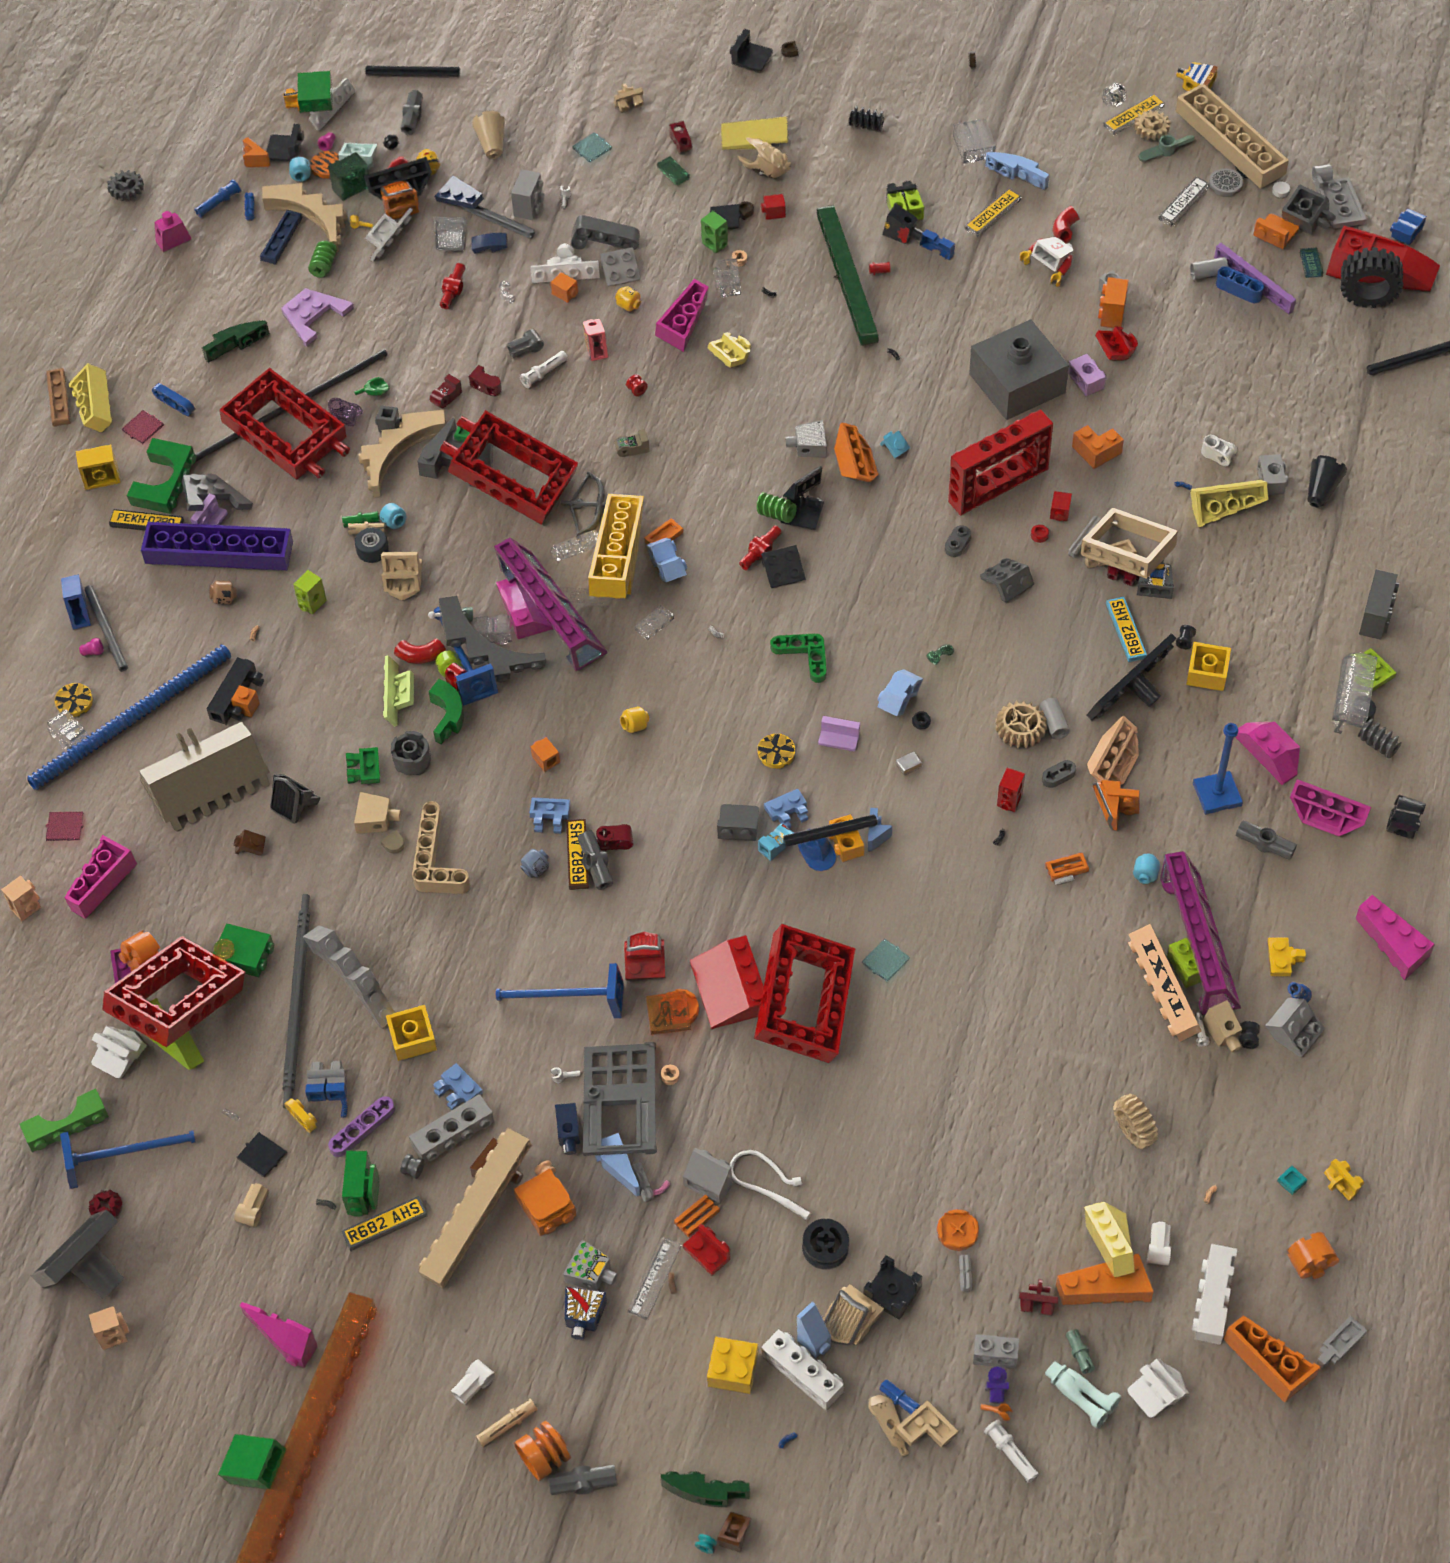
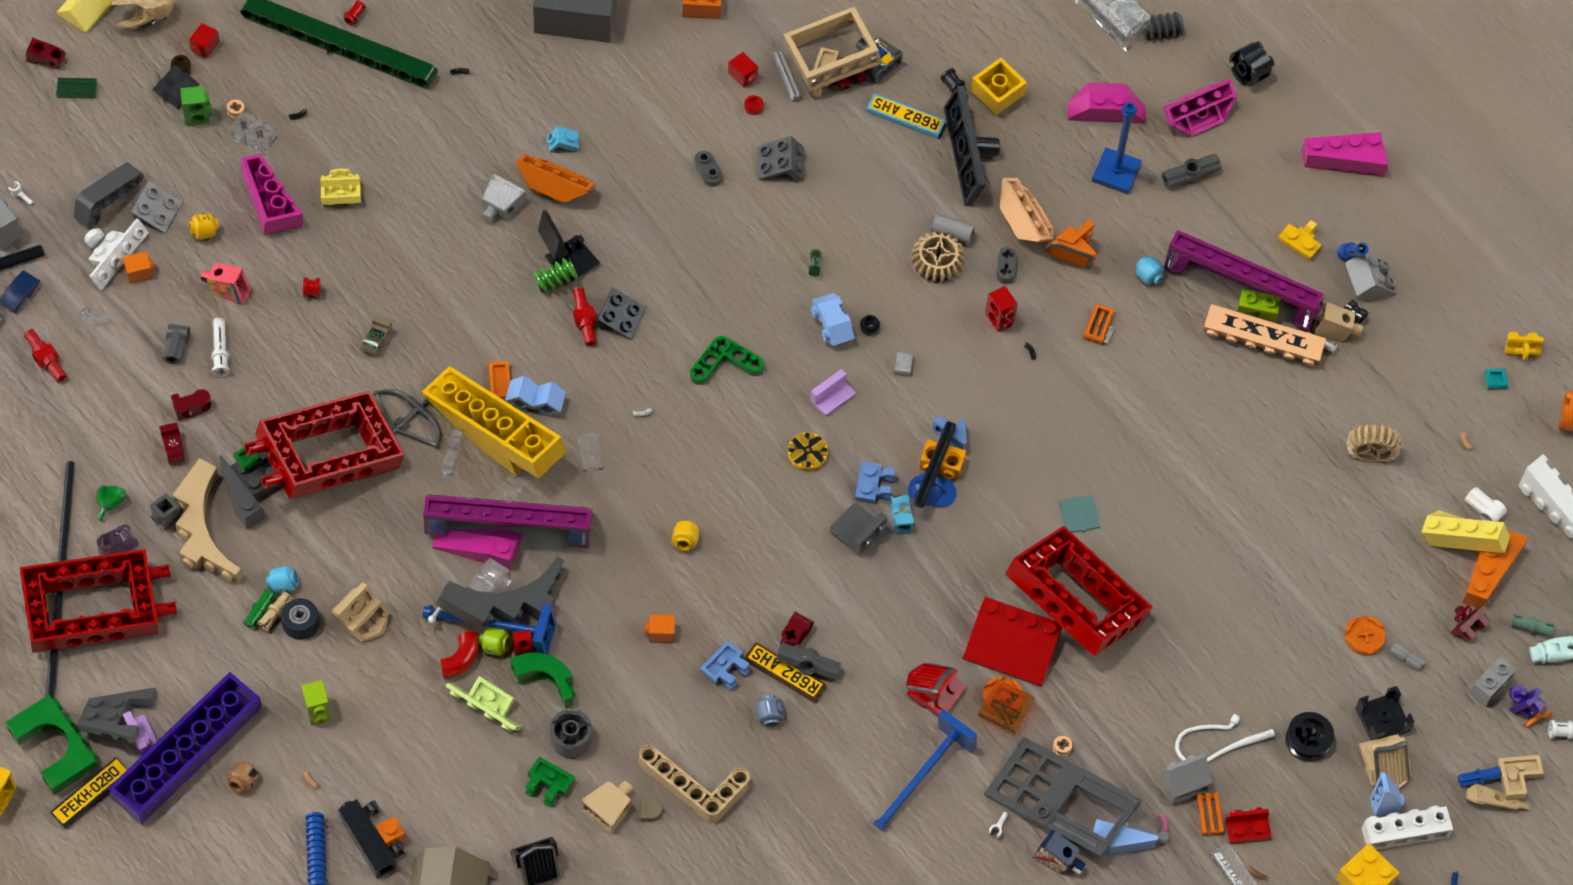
camera: 60 degrees left, 5 degrees up
(1030, 434) = (675, 63): red brick -> none

